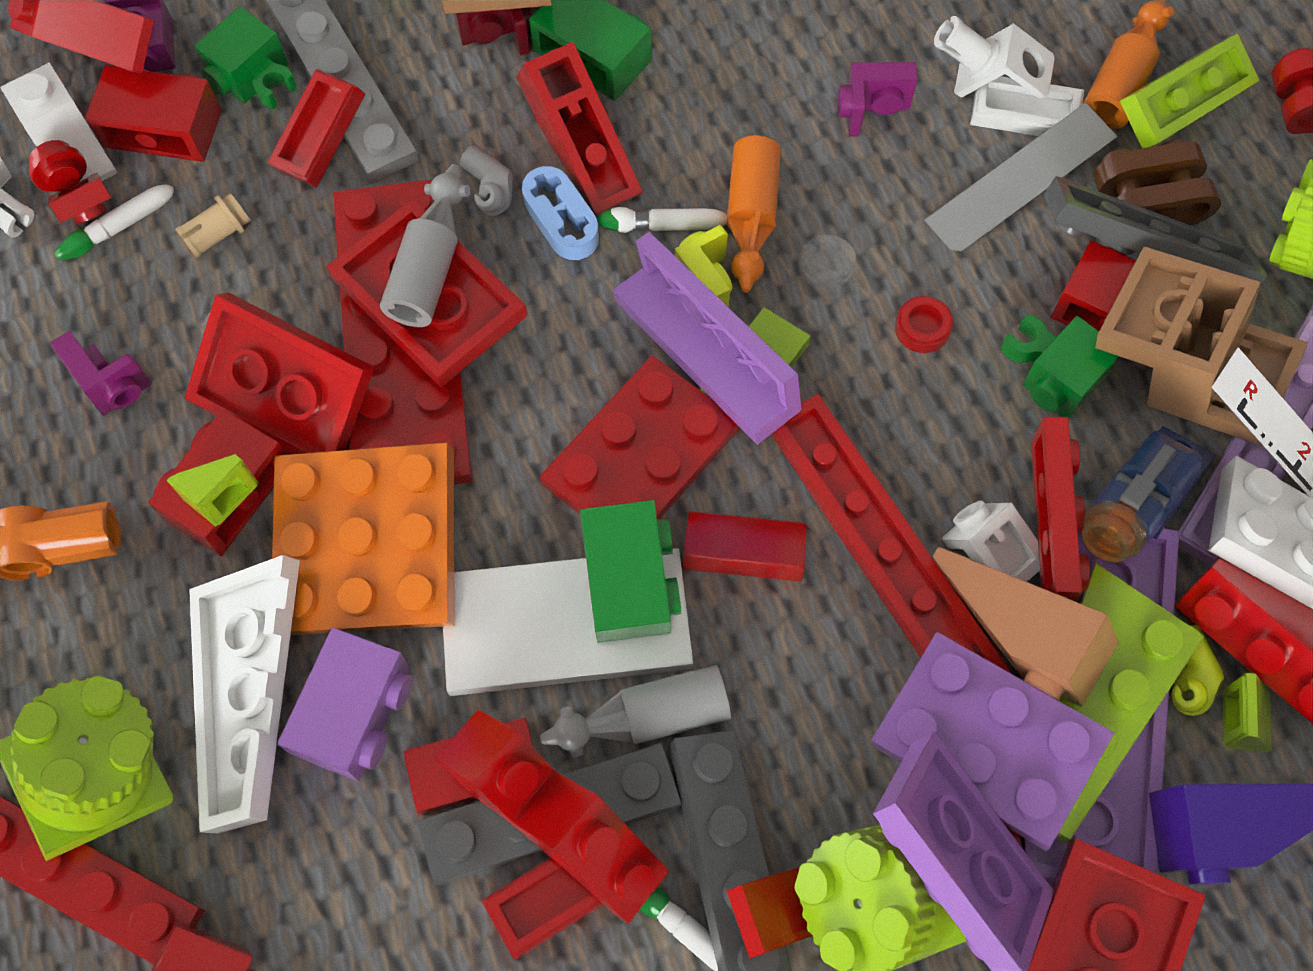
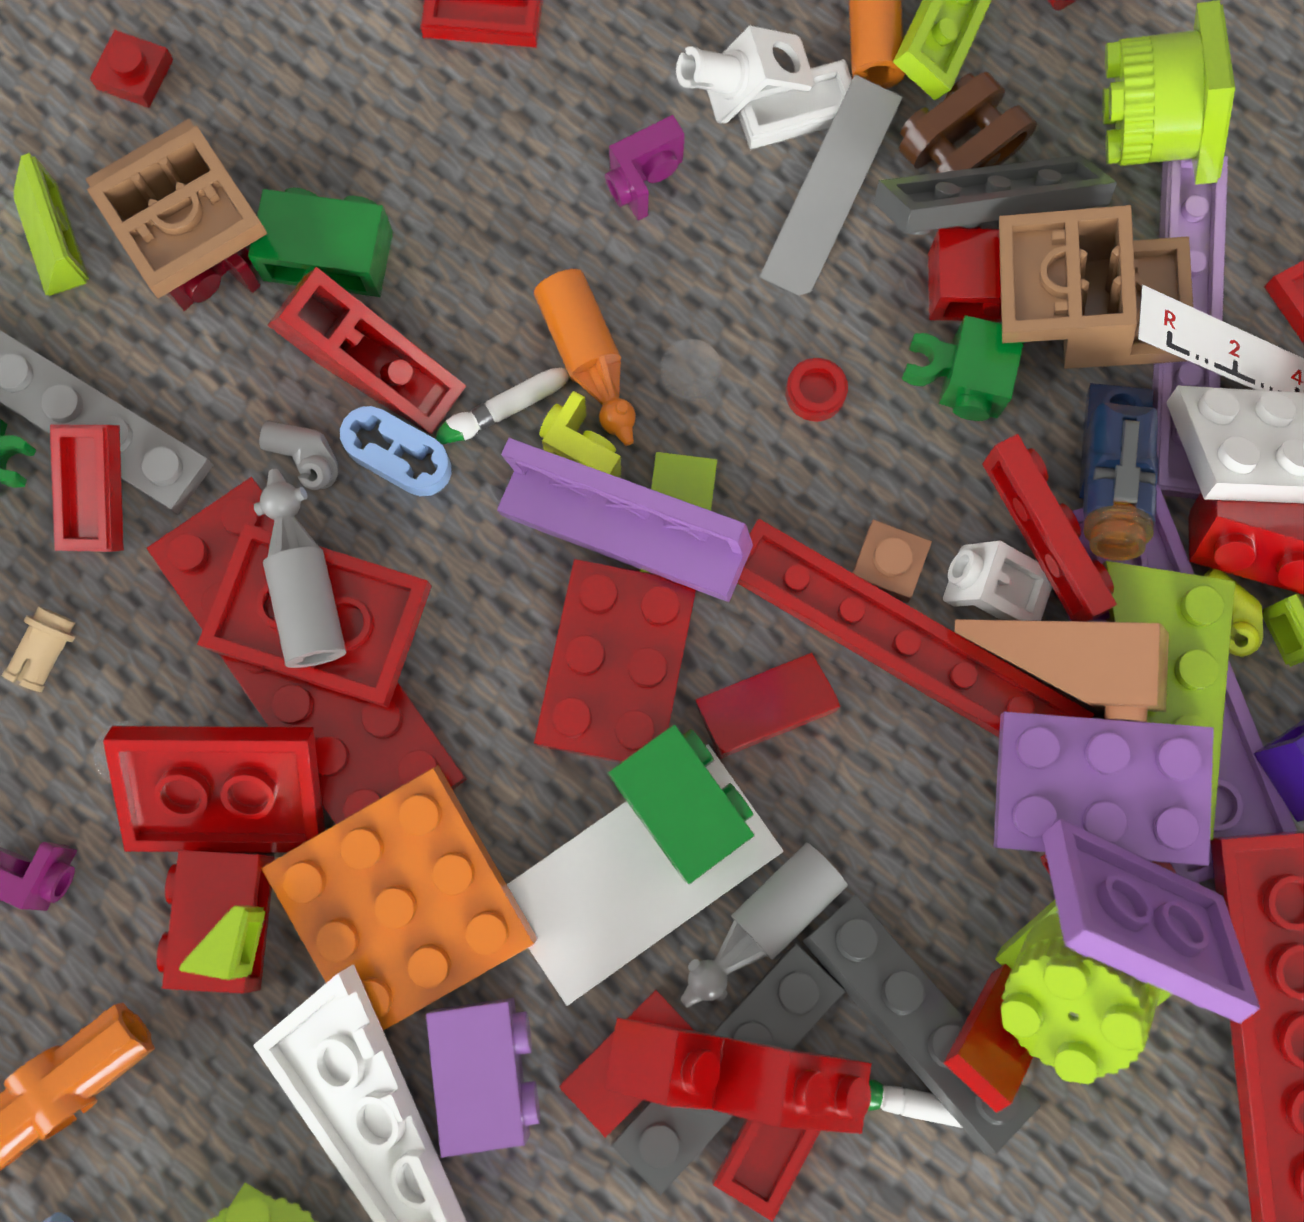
camera: 30 degrees left, 10 degrees up
(915, 483) = (892, 559): none -> nougat plate

